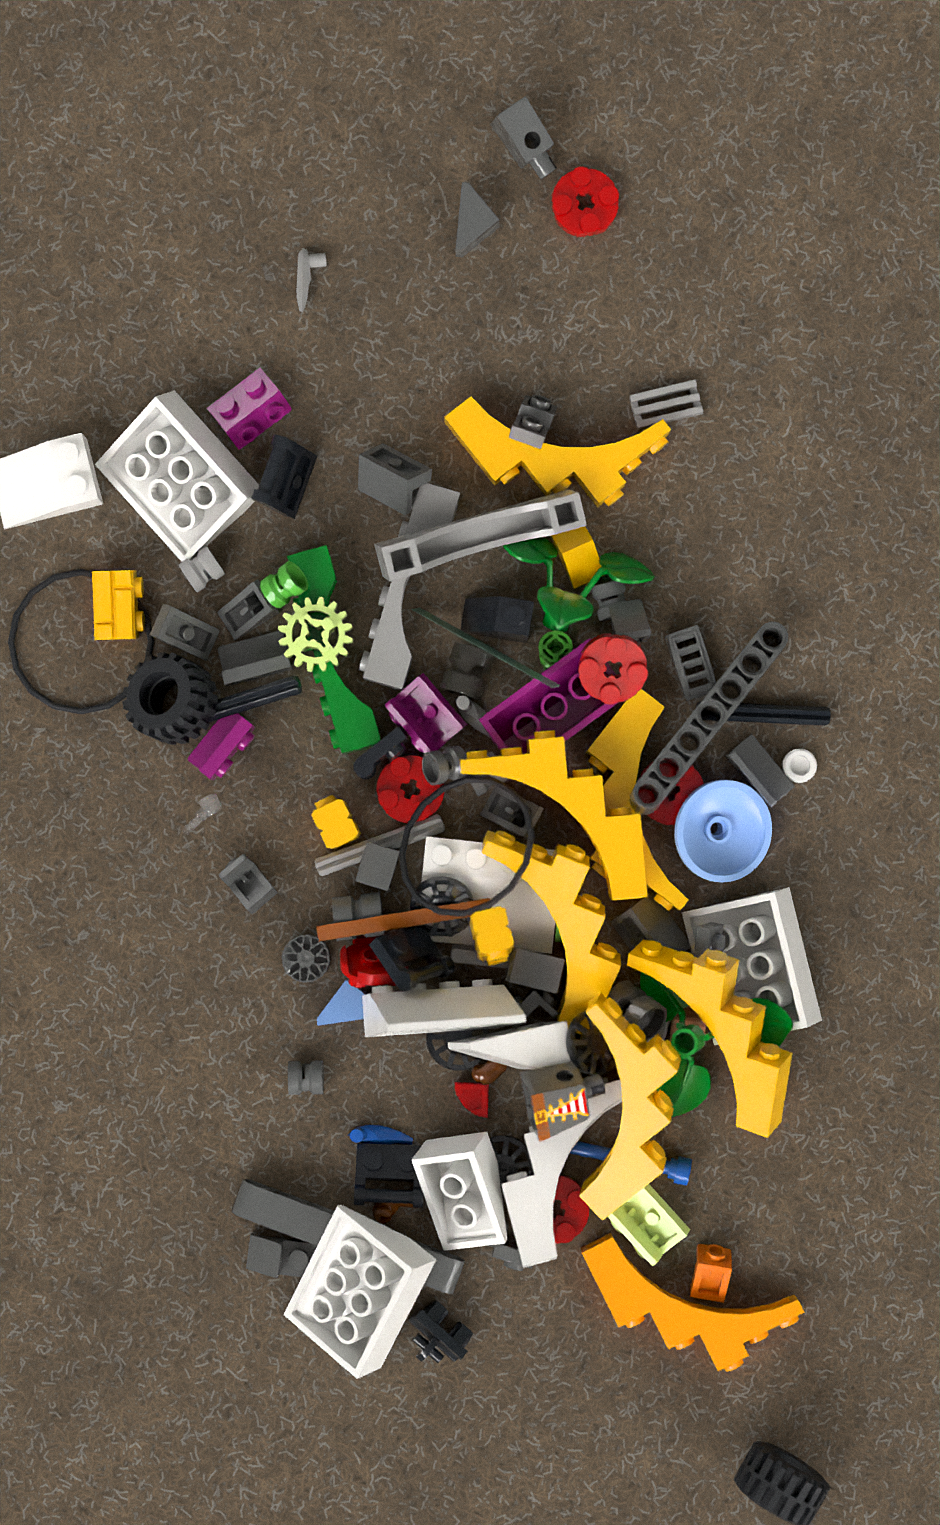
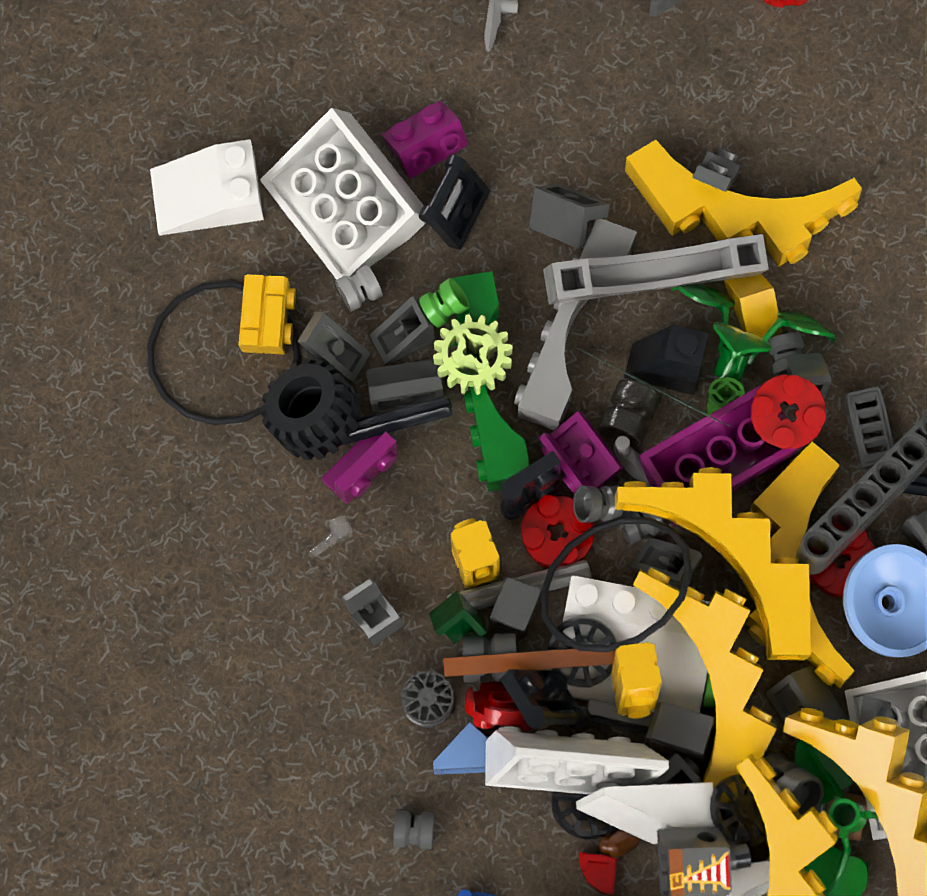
camera: 10 degrees right, 15 degrees down
(324, 882) = (456, 618): none -> dark green panel
(693, 397) = (856, 158): light grey tile -> none

